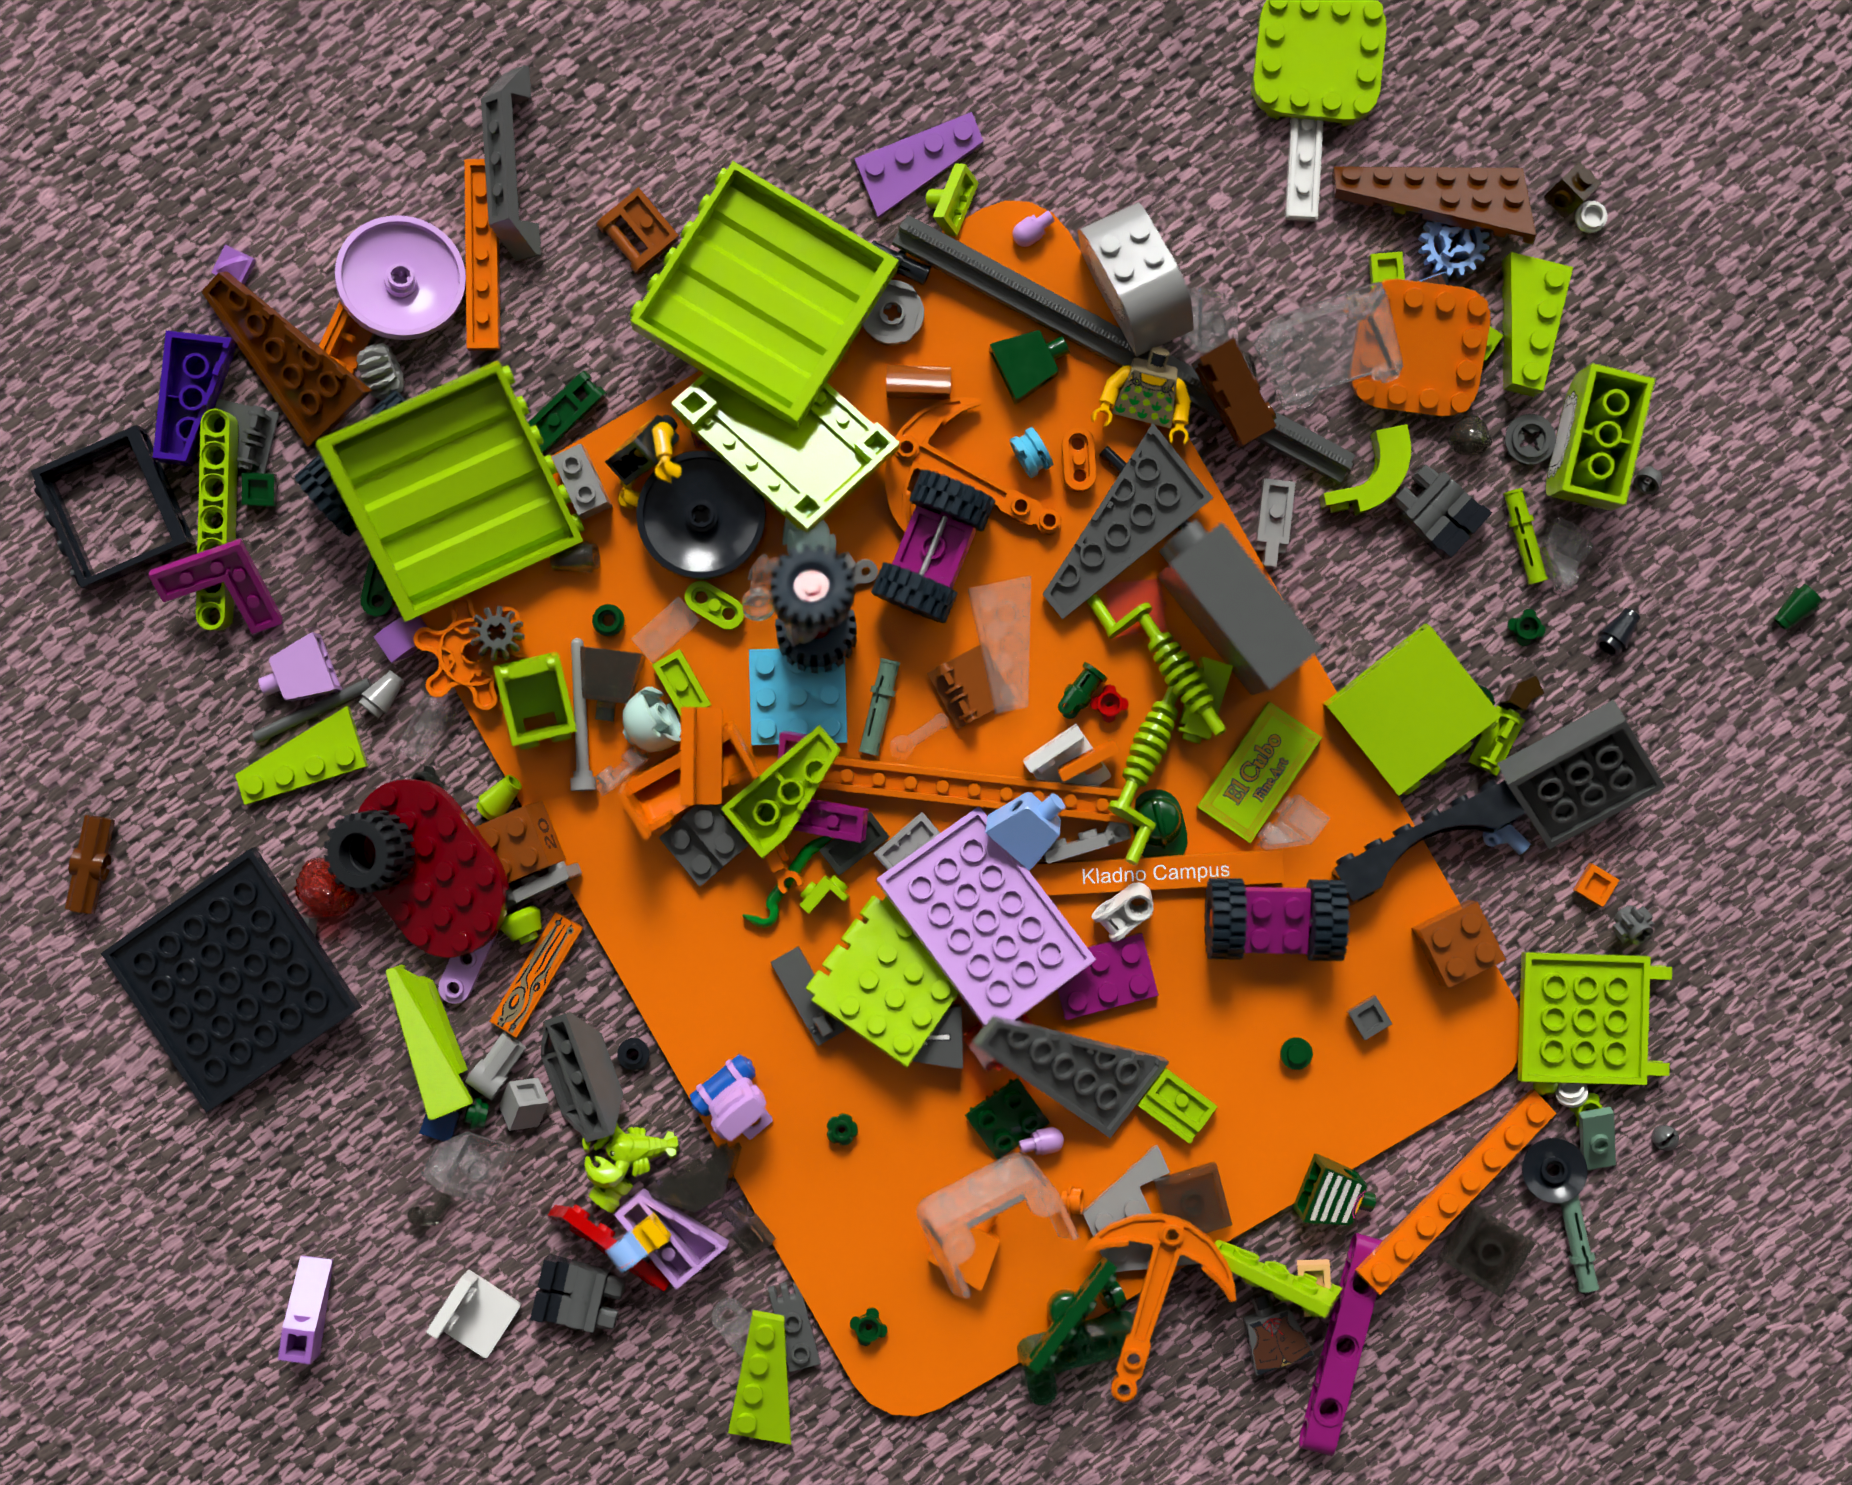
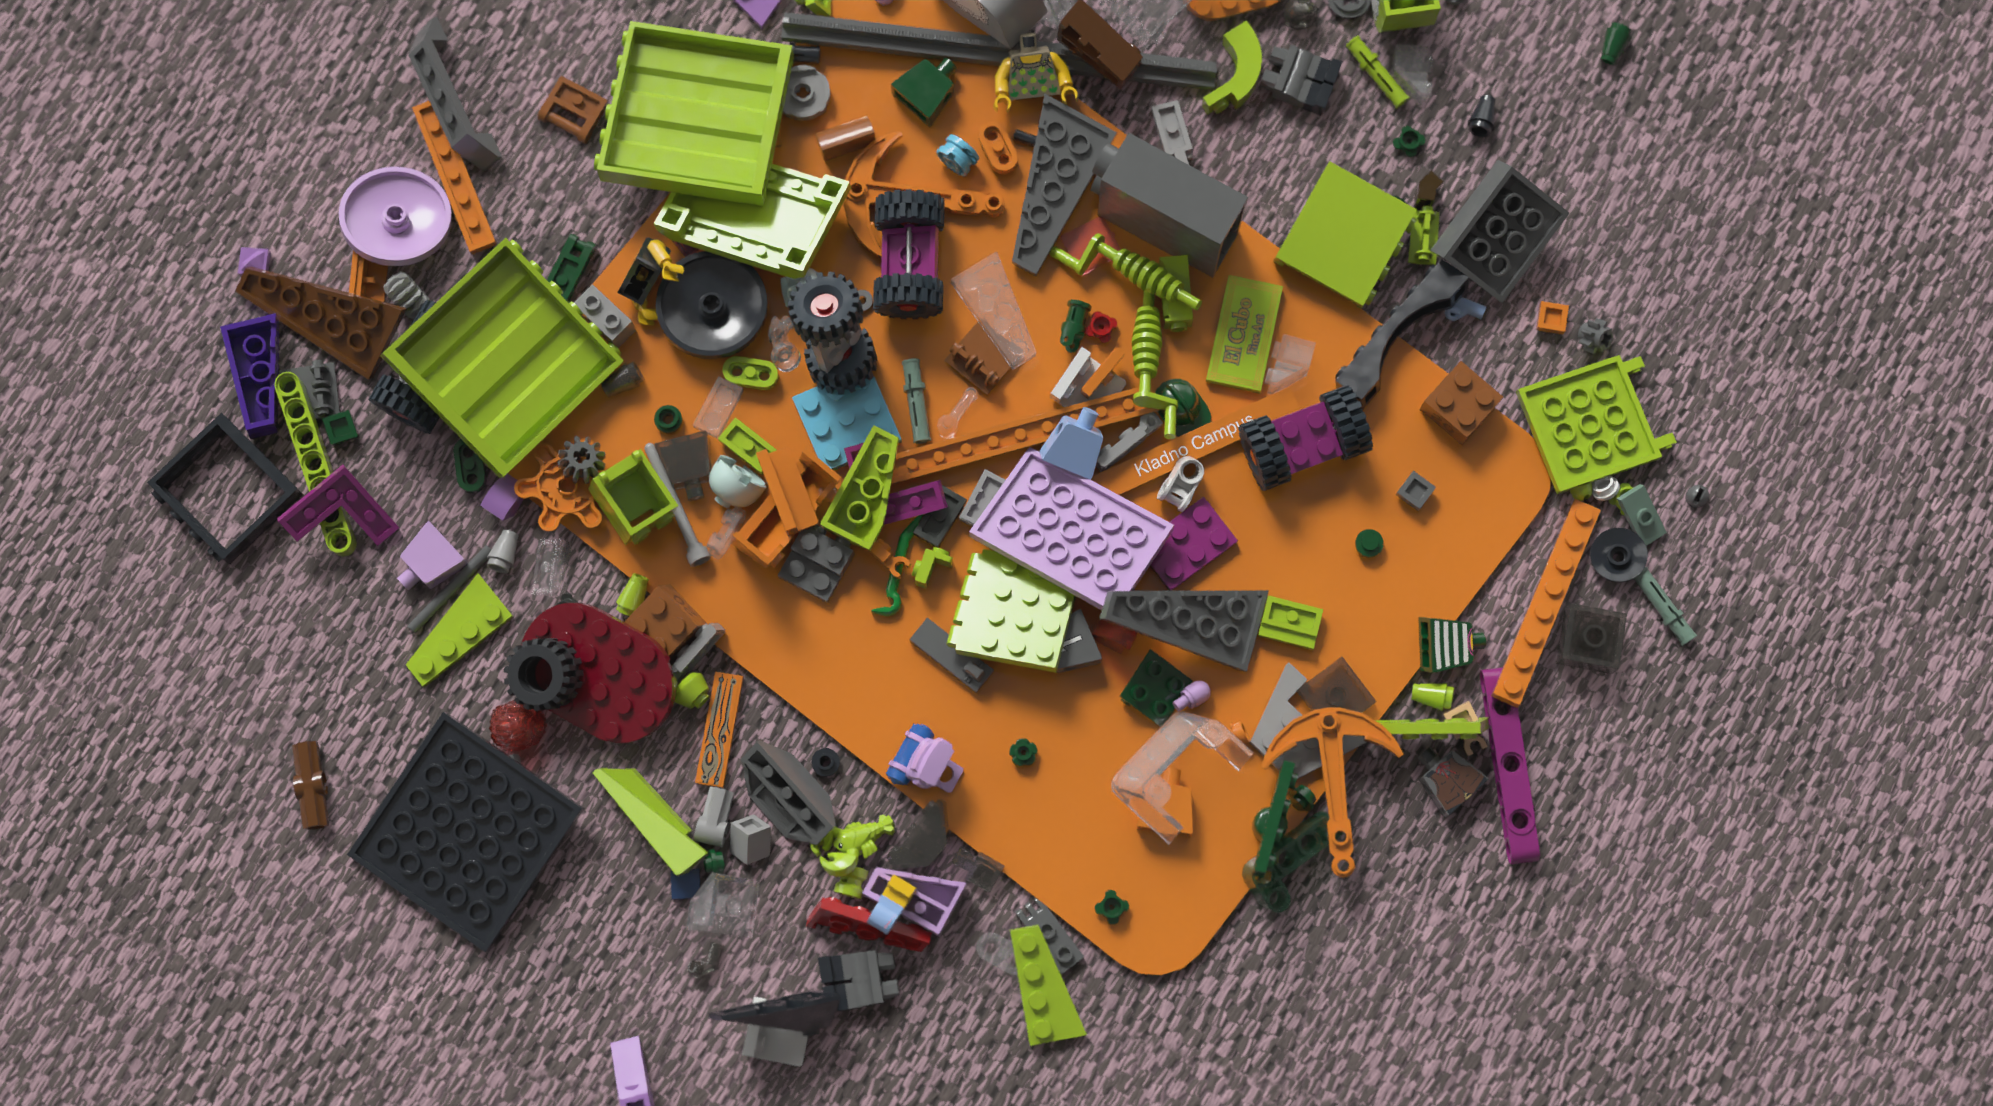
camera: 20 degrees left, 10 degrees down
(463, 974) = (658, 752): lavender plate -> none
(491, 1309) = (798, 1012): none -> black wedge
(1296, 1239) = (1433, 695): none -> lime cone

